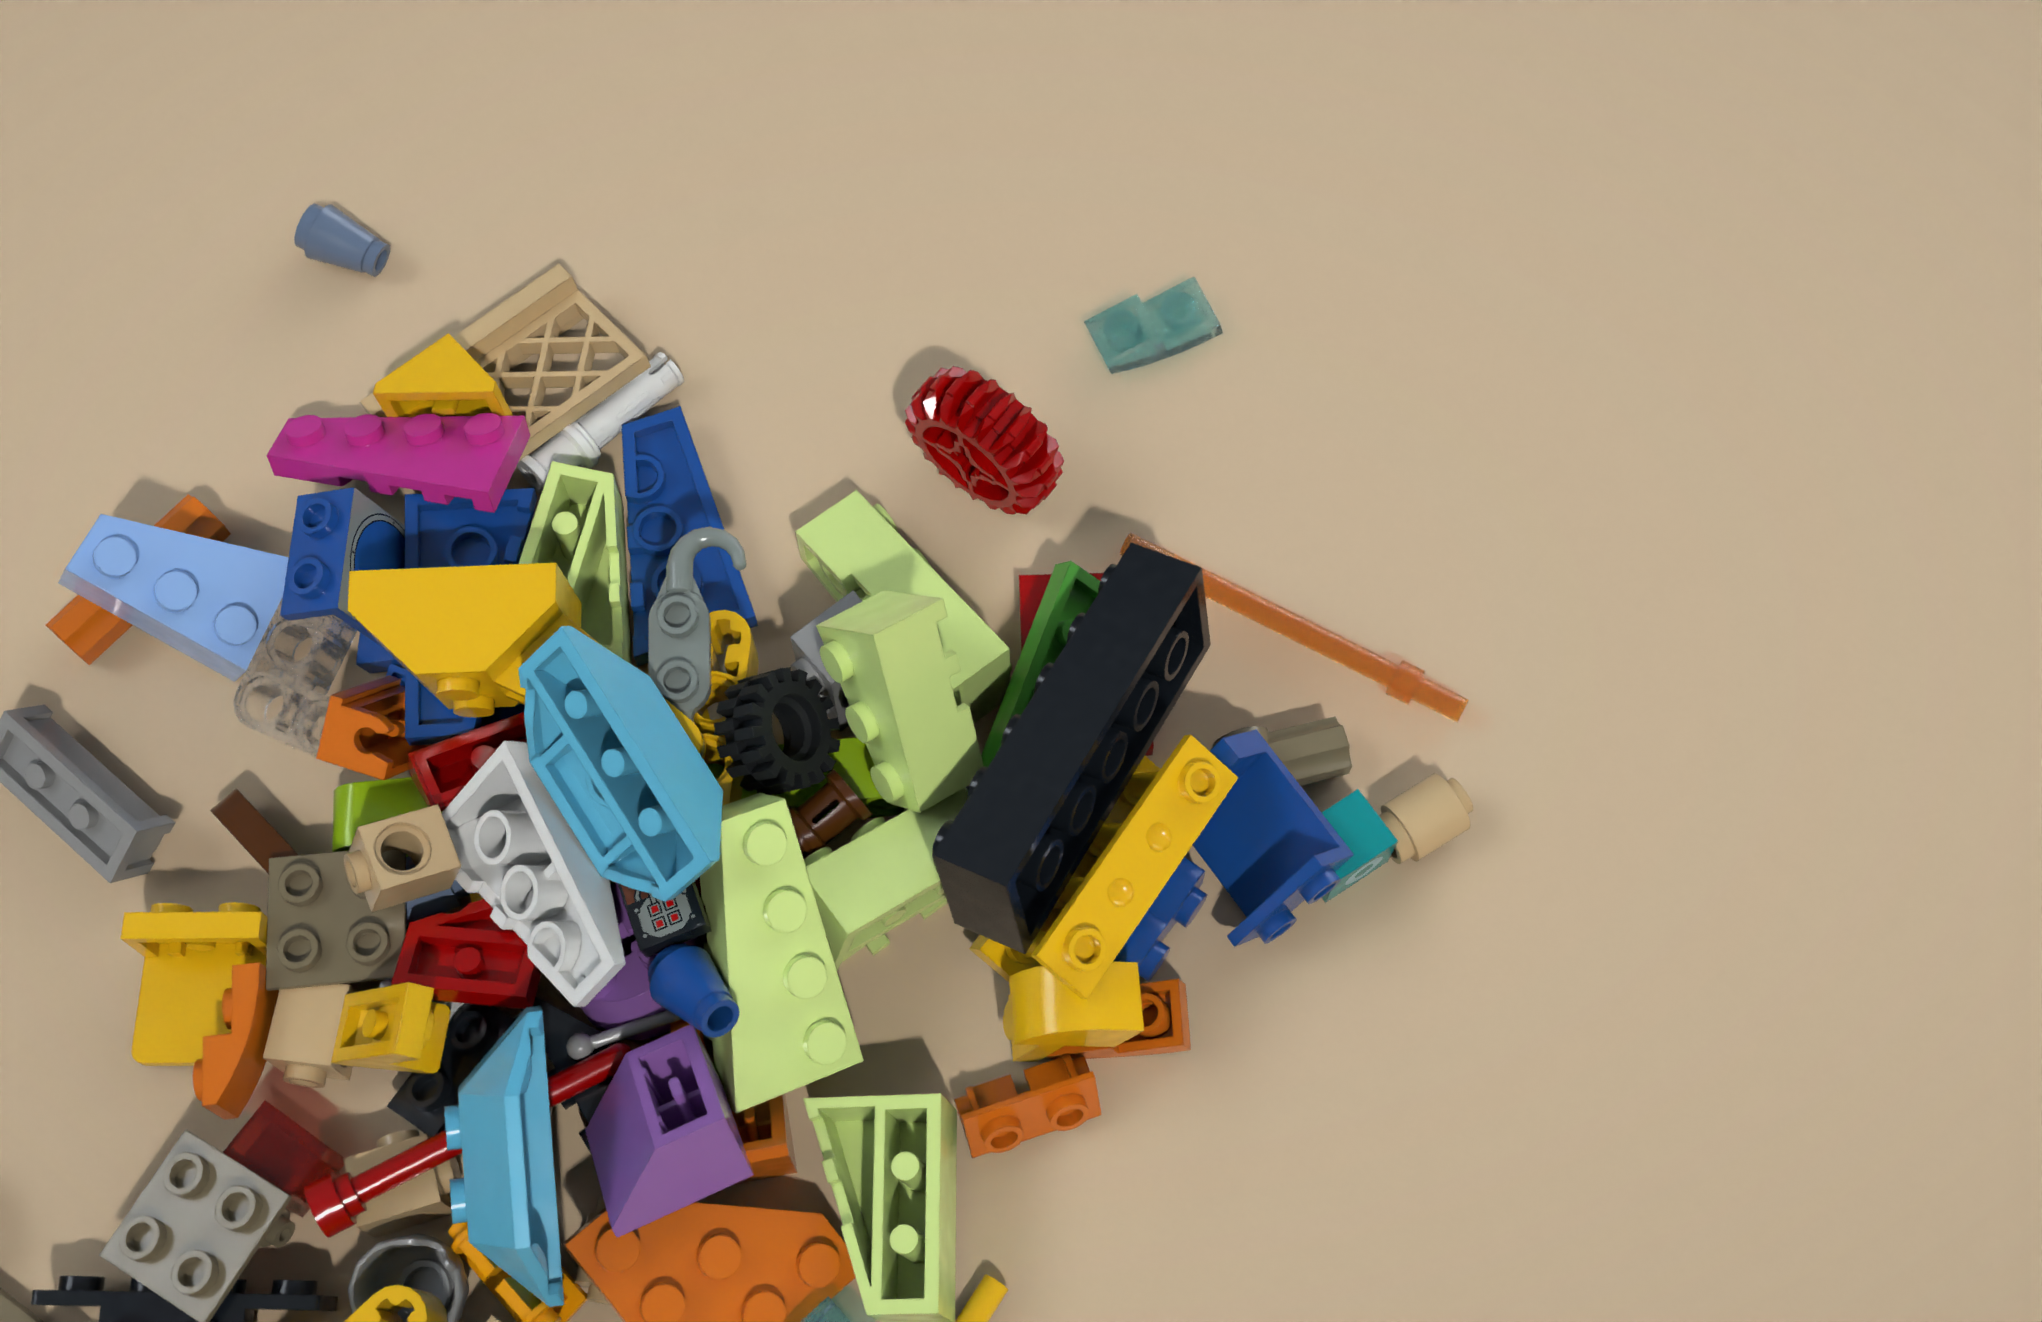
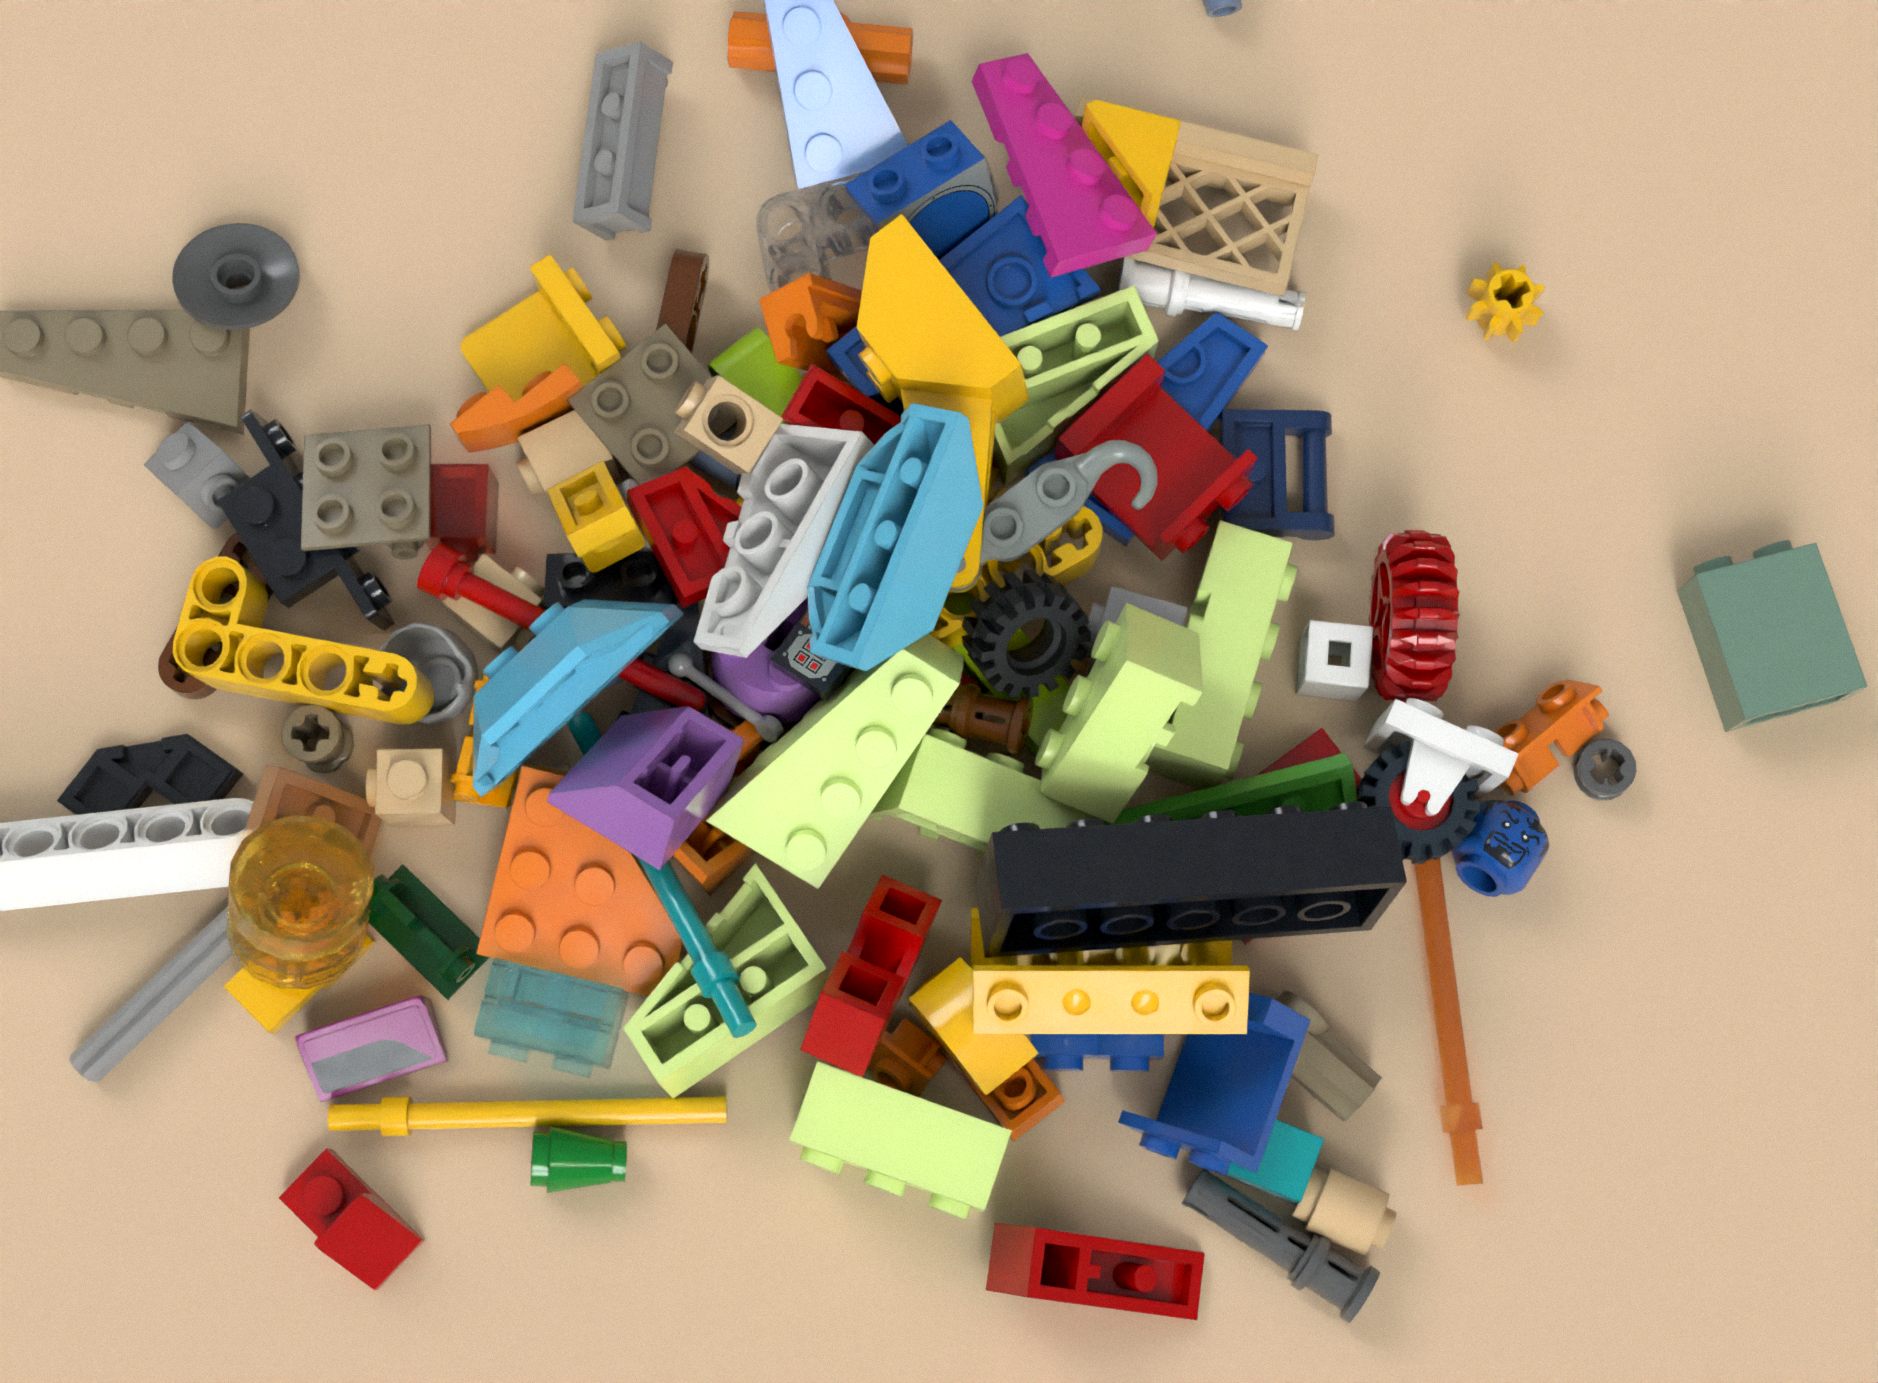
camera: 55 degrees right, 10 degrees up
(690, 987) = (770, 720): blue cone -> none
(748, 514) = (1190, 463): none -> red panel
(773, 484) = (1266, 503): none -> dark blue plate
(783, 220) = (1498, 316): none -> yellow gear
(873, 1193) = (711, 968): none -> teal bar
(972, 528) = (1342, 640): none -> white piece
(974, 1062) = (870, 976): none -> red arch
(1115, 504) = (1431, 776): none -> plate
(1131, 1135) = (899, 1140): none -> yellowish green brick
(1138, 397) = (1563, 714): none -> orange hinge
(1147, 332) = (1642, 683): clear light blue slope -> none
(1181, 215) = (1770, 634): none -> sand green brick
(1211, 508) = (1501, 848): none -> blue head
(1216, 389) = (1623, 775): none -> dark grey bush
(1343, 1054) = (1095, 1271): none -> red slope
(1443, 875) = (1306, 1258): none -> dark grey pin

